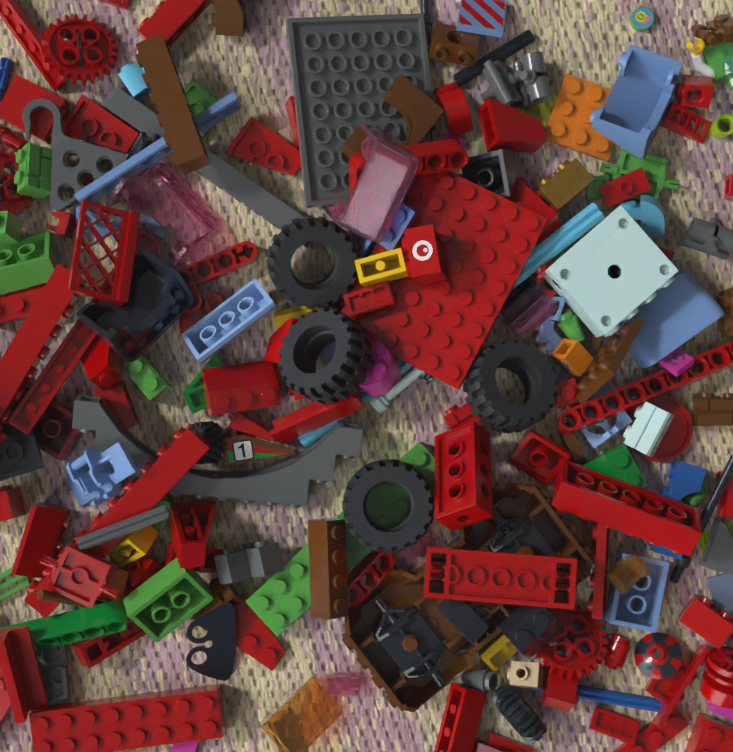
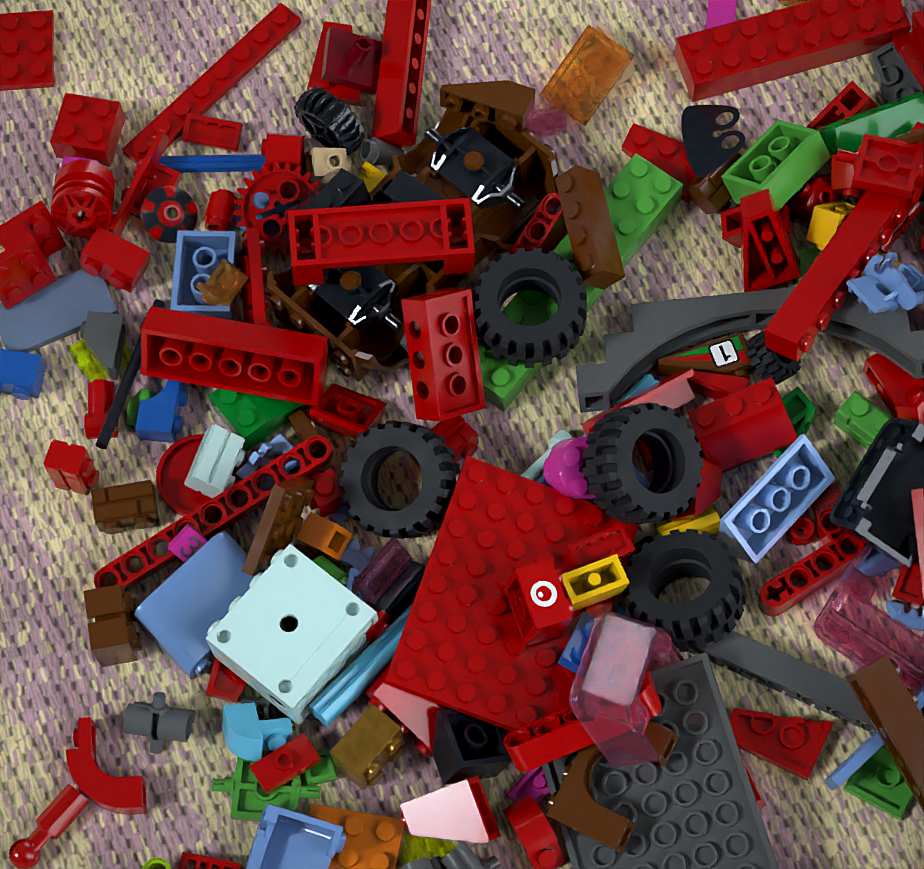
camera: 175 degrees right, 20 degrees down
(123, 527) = (847, 225): dark grey axle -> none
(254, 560) = (687, 229): dark grey brick -> none
(384, 690) = (491, 101): none -> reddish brown slope

